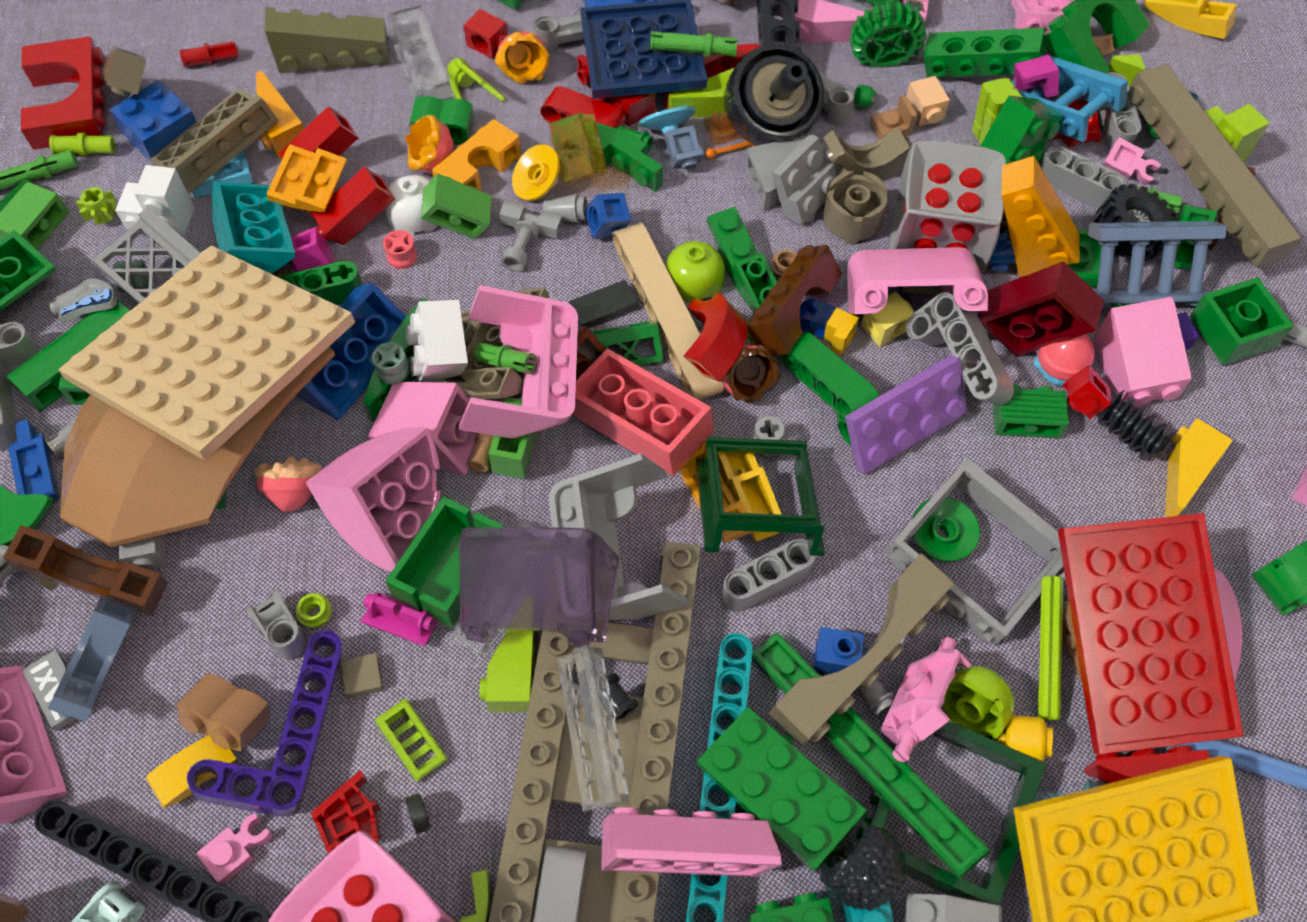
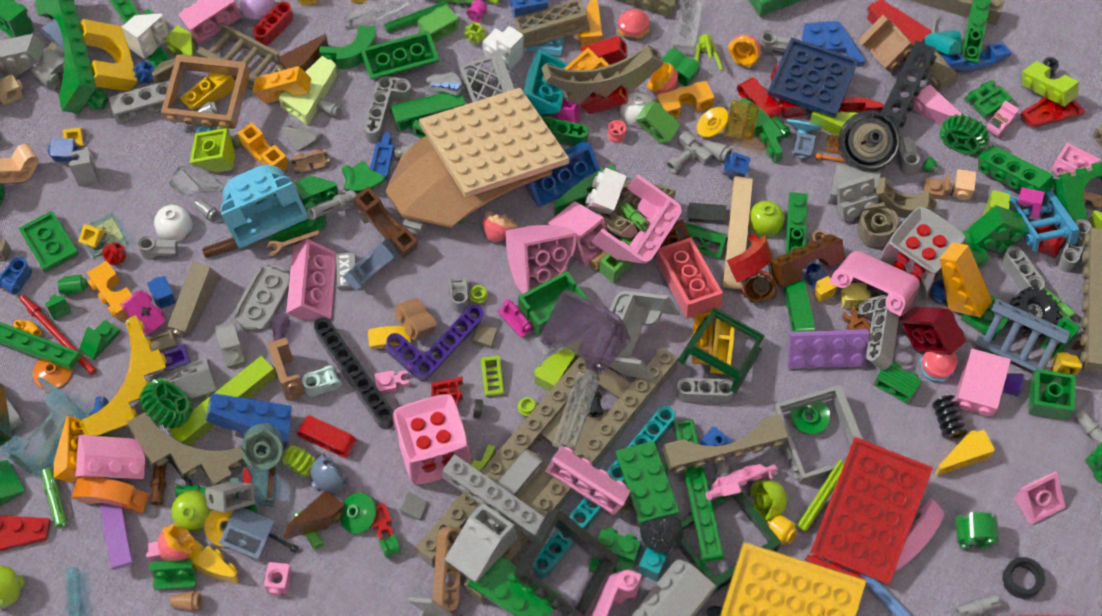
camera: 30 degrees right, 0 degrees up
(84, 172) = (477, 11): none -> dark pink wheel
(340, 88) = (633, 23): none -> coral hair
(342, 177) = (603, 81): none -> dark tan arch
(394, 356) = (581, 188): sand green wheel -> none
(485, 33) = (733, 25): red brick -> none
(499, 761) = (526, 406): none -> lime plate
(697, 44) = (840, 89): bright green pin -> none
(769, 428) = (750, 318): light grey bush -> none
(917, 358) = (854, 322): none -> dark orange plate
(1088, 392) = (929, 387): red brick -> none
(1127, 160) = (1058, 275): bright pink plate -> none
(1231, 269) = (1066, 363): none -> yellow slope

